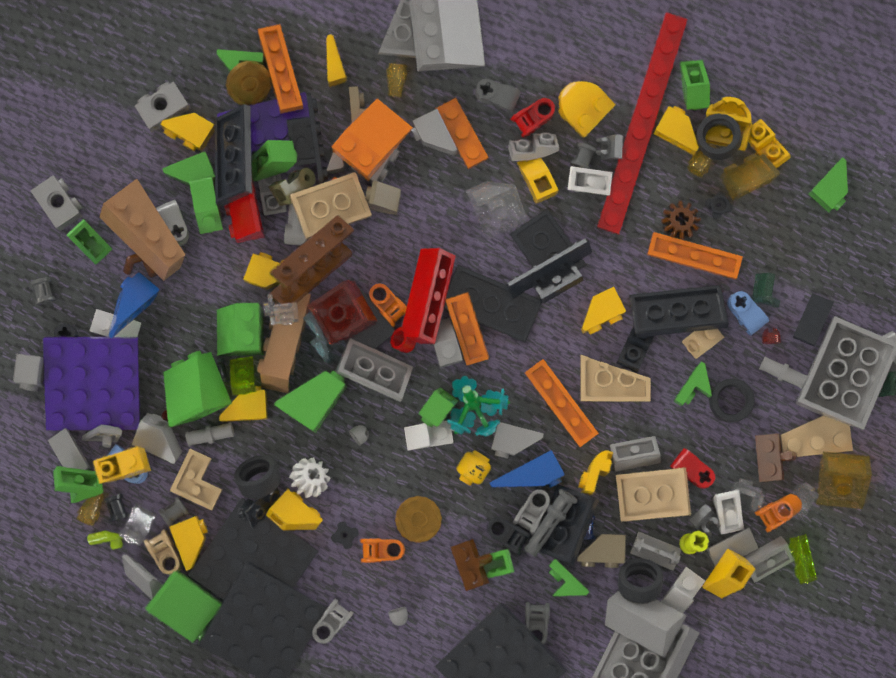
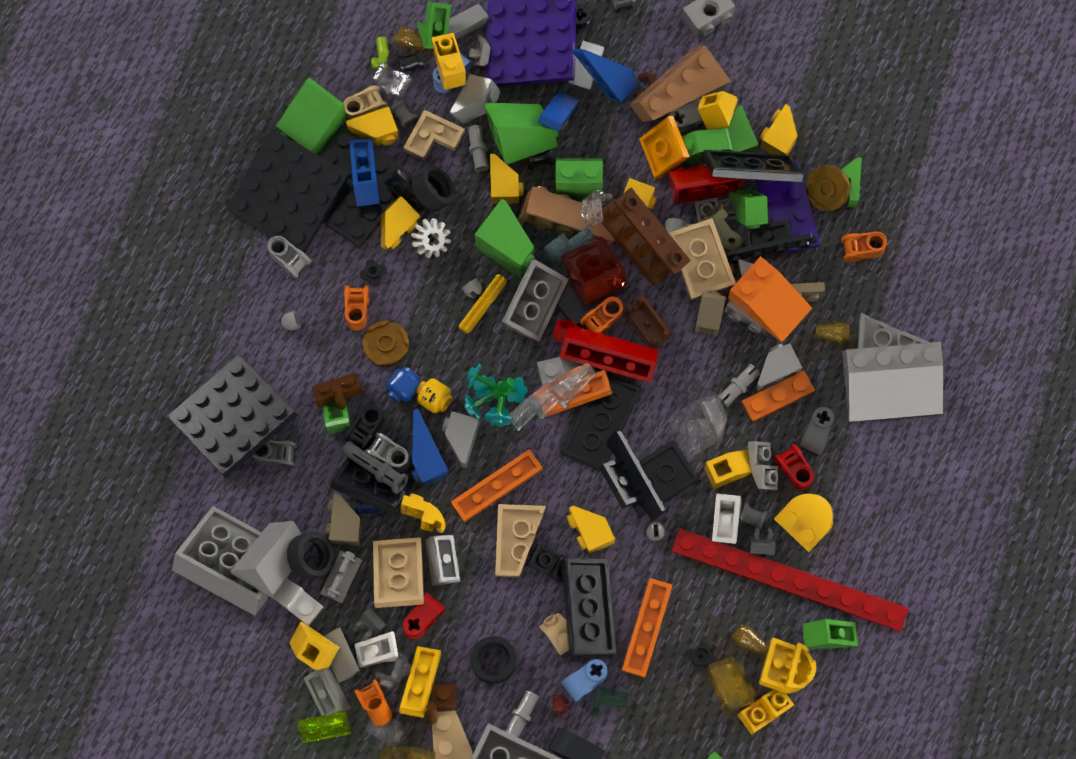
camera: 95 degrees right, 10 degrees down
(89, 242) = (670, 40): bright green slope -> none
(141, 576) = (345, 81): light grey slope -> none
(170, 191) = (717, 109): none -> yellow slope
(172, 351) = (559, 111): none -> blue tile
(175, 105) = (805, 120): light grey brick -> none
(208, 245) = (664, 147): none -> light orange tile
(241, 548) = (364, 172): none -> blue slope
(242, 375) = (533, 175): clear neon green plate -> none
(280, 69) = (843, 218): orange plate -> none
(307, 53) = (862, 247): none -> orange piece
(335, 70) = (850, 271): yellow slope -> none
(375, 423) = (483, 304): none -> yellow axle
(393, 260) = (647, 323): none -> reddish brown hinge
(424, 436) = (468, 353): white slope -> none
(437, 407) = (496, 359): bright green slope -> none
(452, 171) = (739, 385): none -> light grey pin
(463, 499) = (402, 385): none -> blue head
(469, 343) = (559, 390): none -> clear slope
(570, 586) = (312, 488): bright green slope -> none
(599, 254) = (650, 531): none -> light grey hinge
(675, 225) = (677, 608): reddish brown gear -> none
(677, 130) = (782, 613): yellow slope -> none
(697, 380) = (515, 623): bright green slope -> none
(700, 539) = (344, 620): neon yellow bush -> none
(715, 120) = (784, 641): black tyre -> none
(757, 468) = (420, 682): none -> yellow tile

